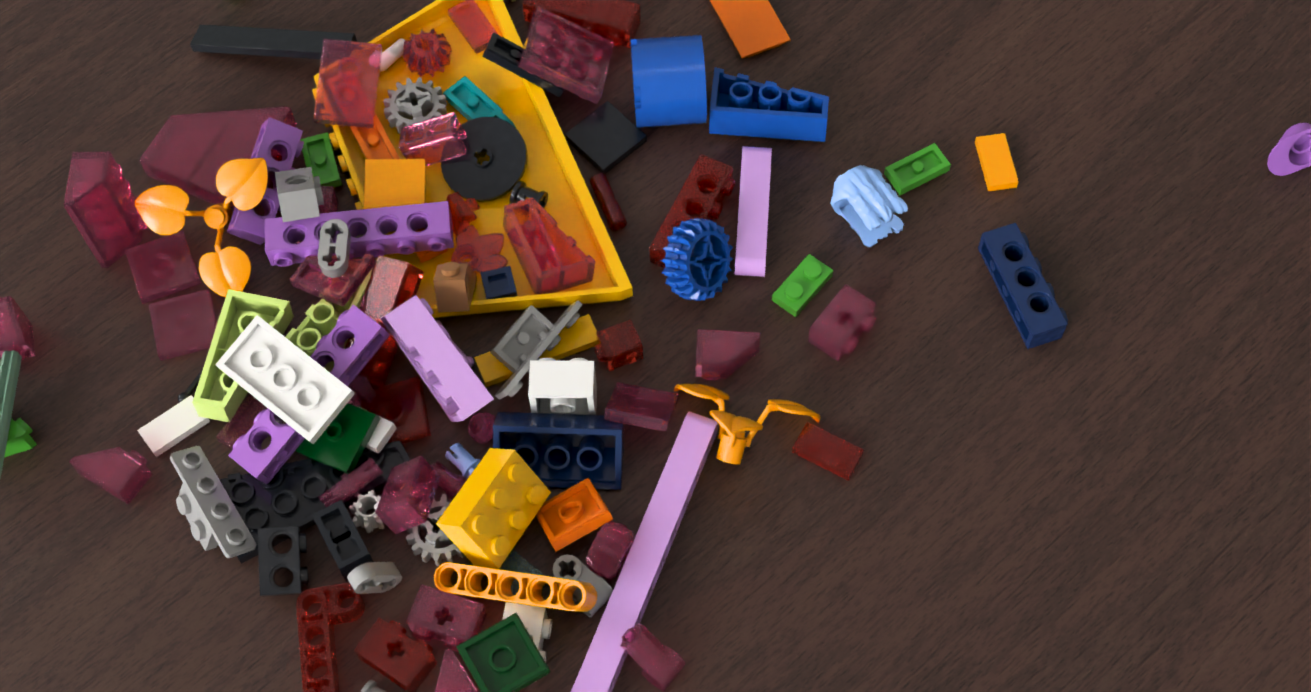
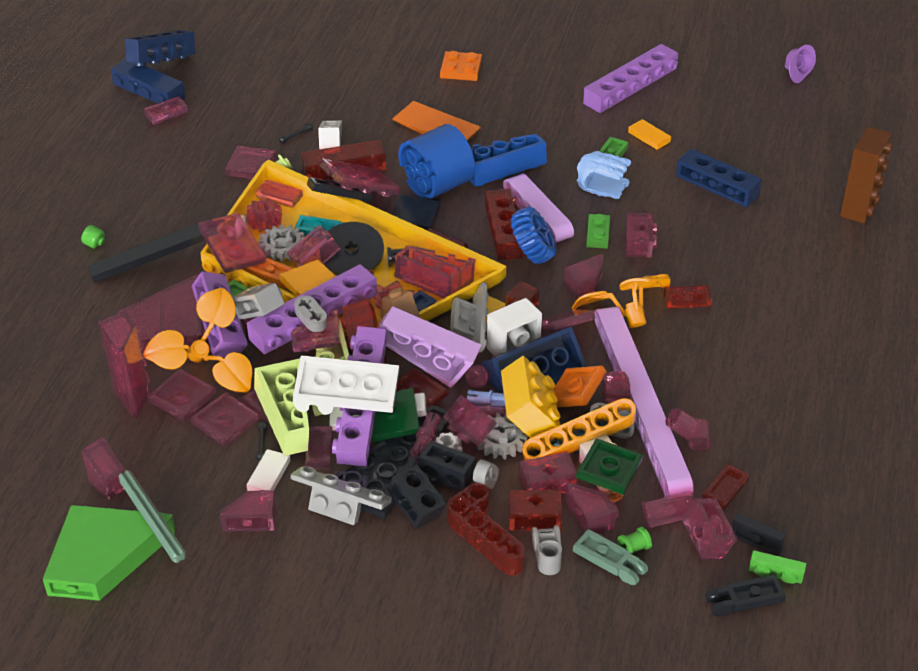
camera: 35 degrees left, 20 degrees down
(1046, 55) = (630, 78): none -> medium lavender brick
(1195, 406) = (866, 174): none -> reddish brown brick

